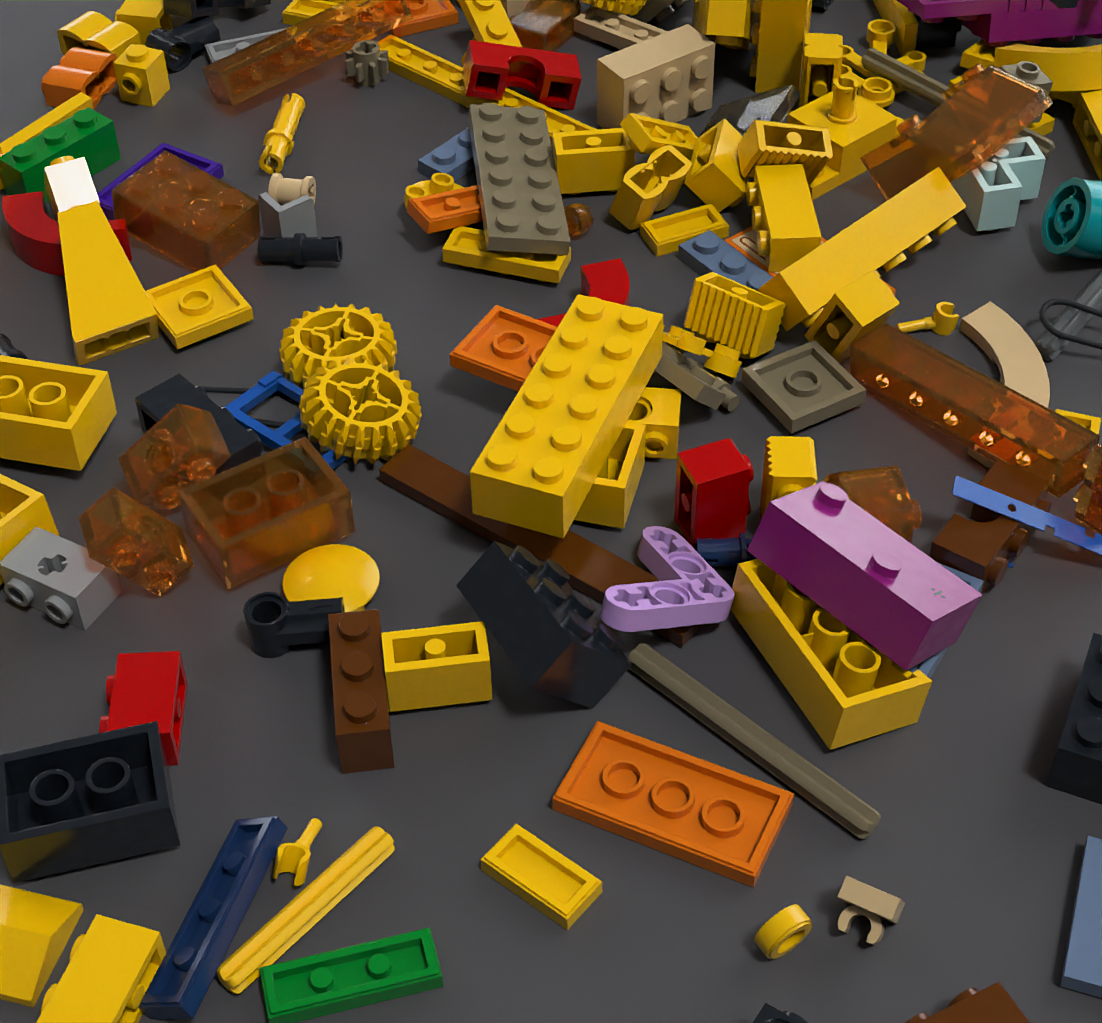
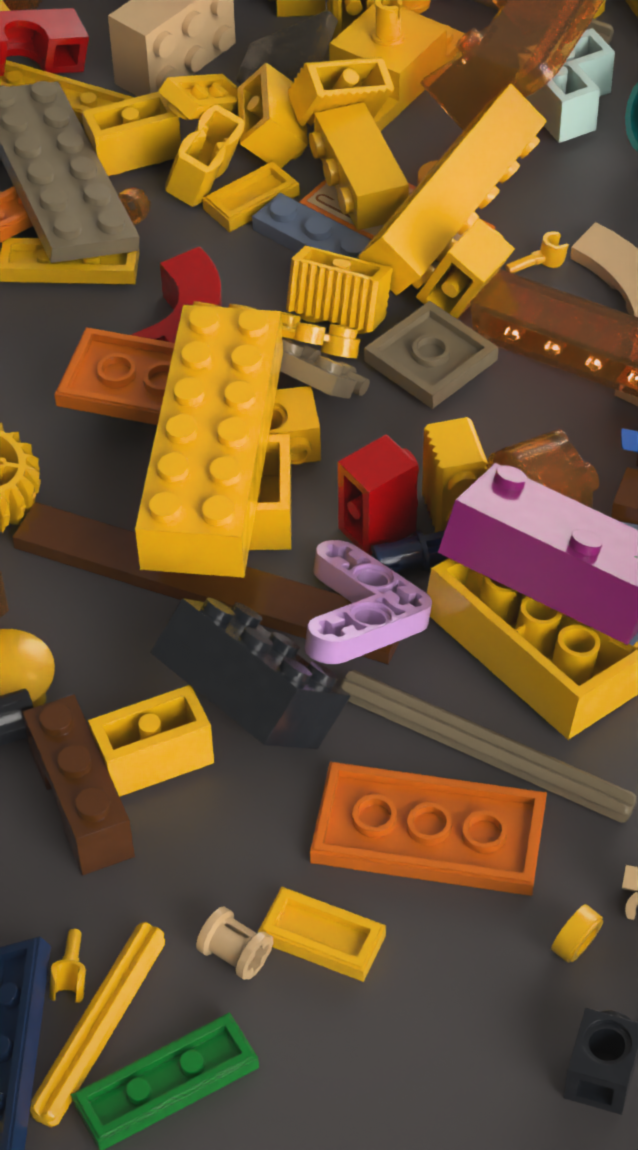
camera: 15 degrees left, 5 degrees up
(454, 864) = (234, 943): none -> tan bush

